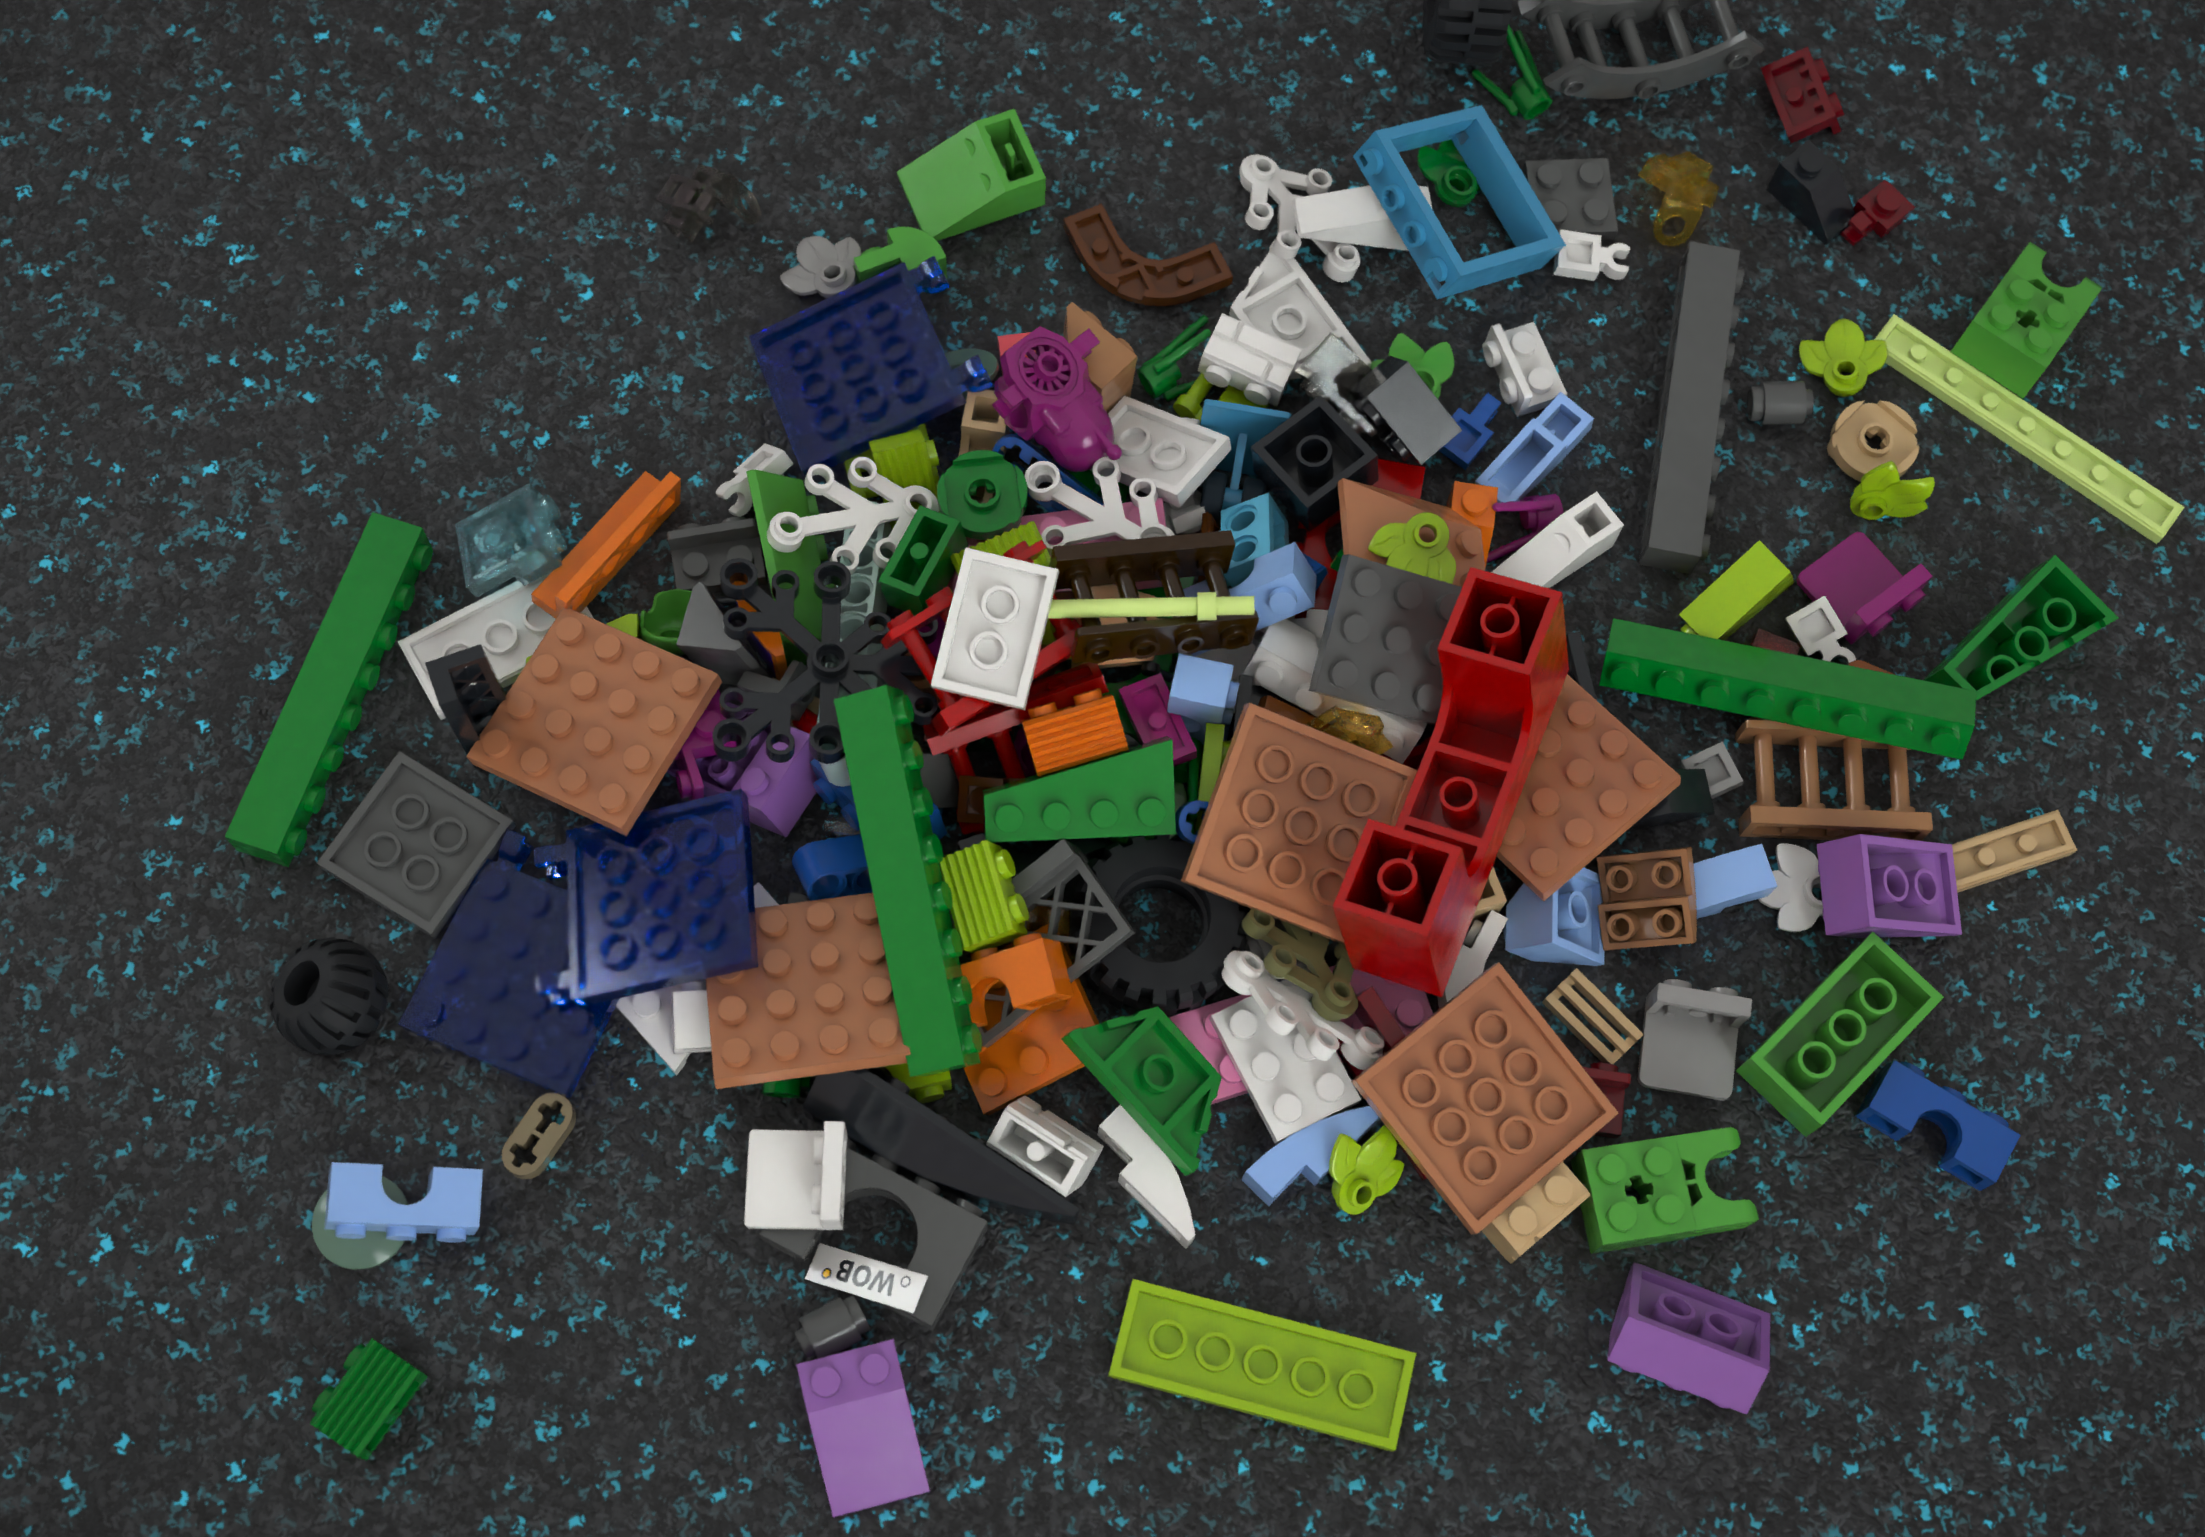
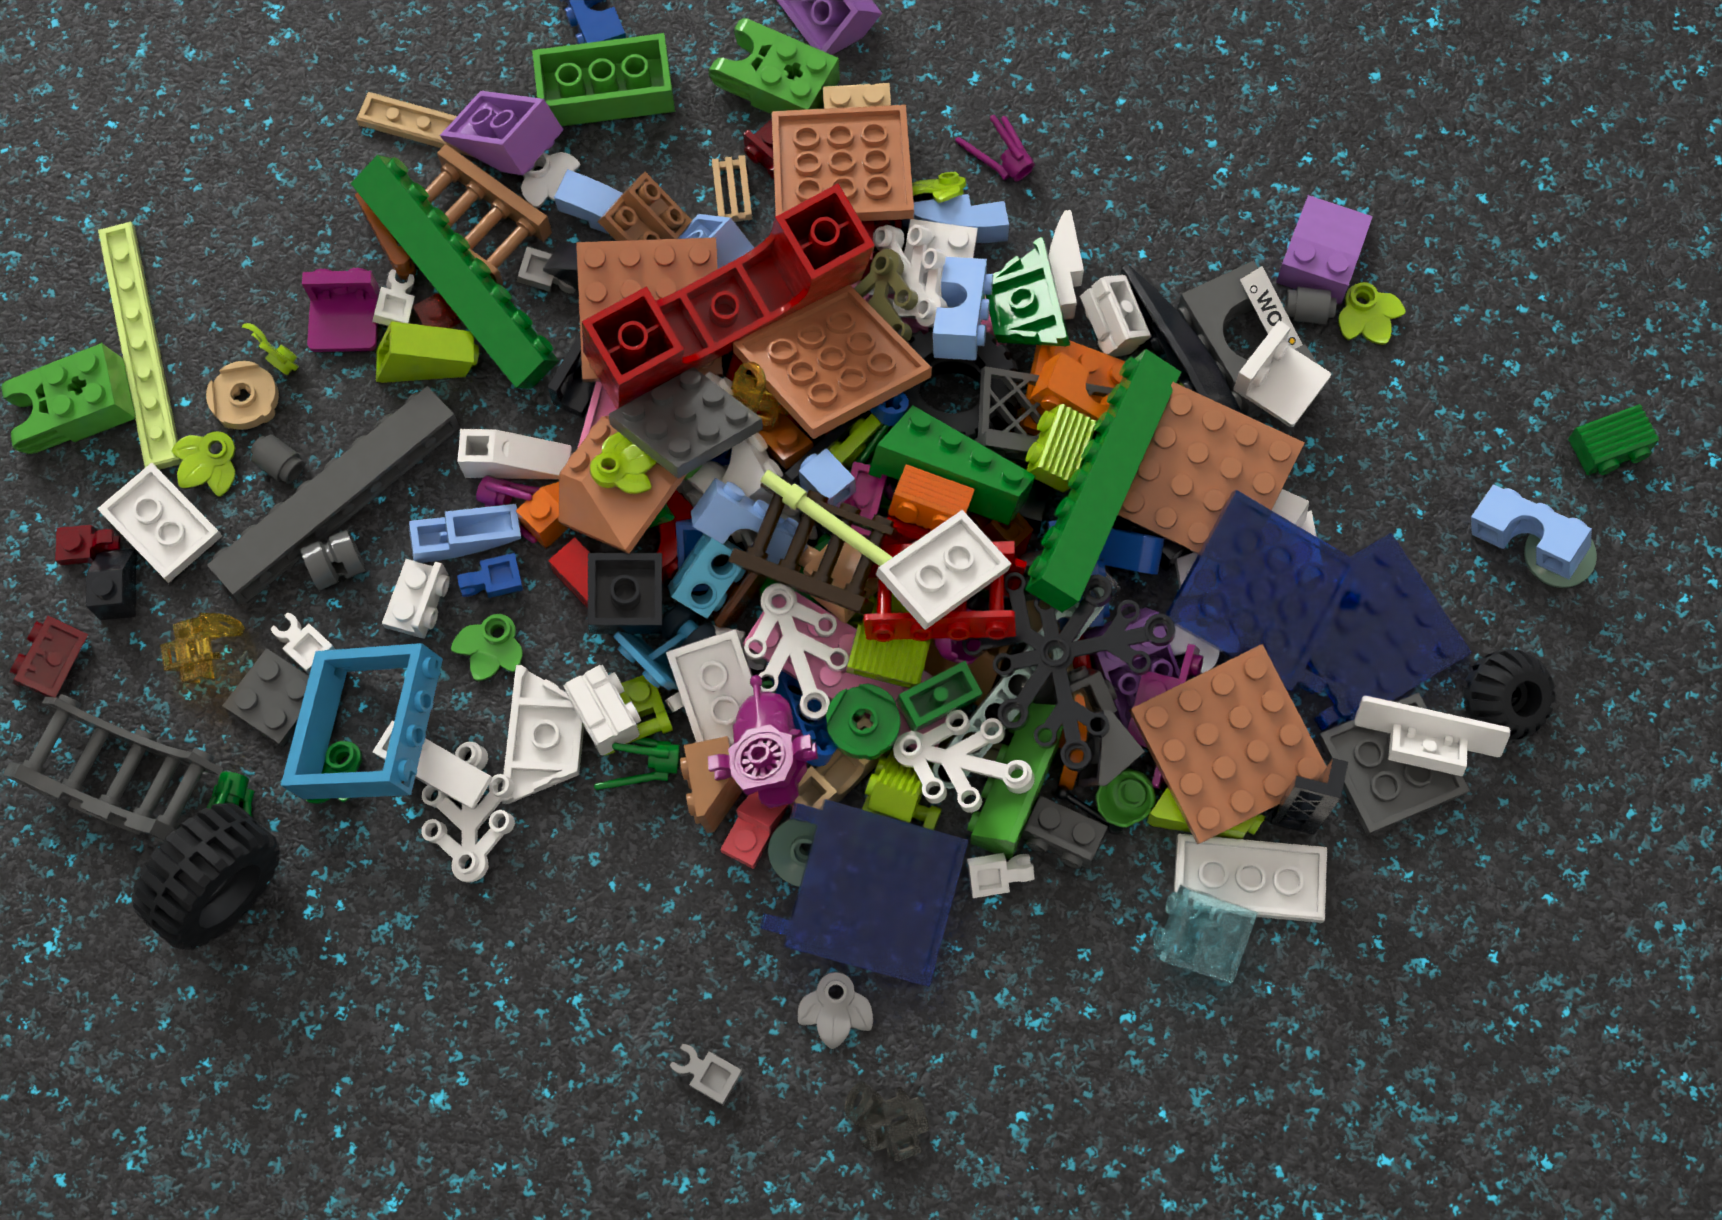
camera: 135 degrees left, 0 degrees up
(330, 691) = (1390, 913): green brick -> none
(384, 871) = (1429, 736): none -> white bracket
(530, 1128) = (1417, 521): dark tan beam -> none
(609, 544) = (1135, 885): orange fence -> none
(751, 1369) = (1369, 318): none -> lime plate
(893, 143) = (712, 1076): none -> light grey plate
(904, 245) = (769, 970): bright green brick -> none
(974, 178) = (679, 998): bright green slope -> none
(1141, 278) = (619, 840): reddish brown plate -> none
(1187, 958) = (959, 329): none -> light blue arch
(1263, 1365) = (1074, 136): lime plate -> none
(1304, 1276) = (1015, 160): none -> magenta plant
(1331, 373) = (556, 653): clear smoke bracket -> none
(1405, 410) = (533, 597): brick -> none
(1632, 341) = (333, 560): none -> dark grey wheel
(1691, 1039) = (688, 137): light grey bracket -> none
(1827, 274) = (160, 522): none -> white plate
(2026, 628) = (283, 217): green wedge -> none

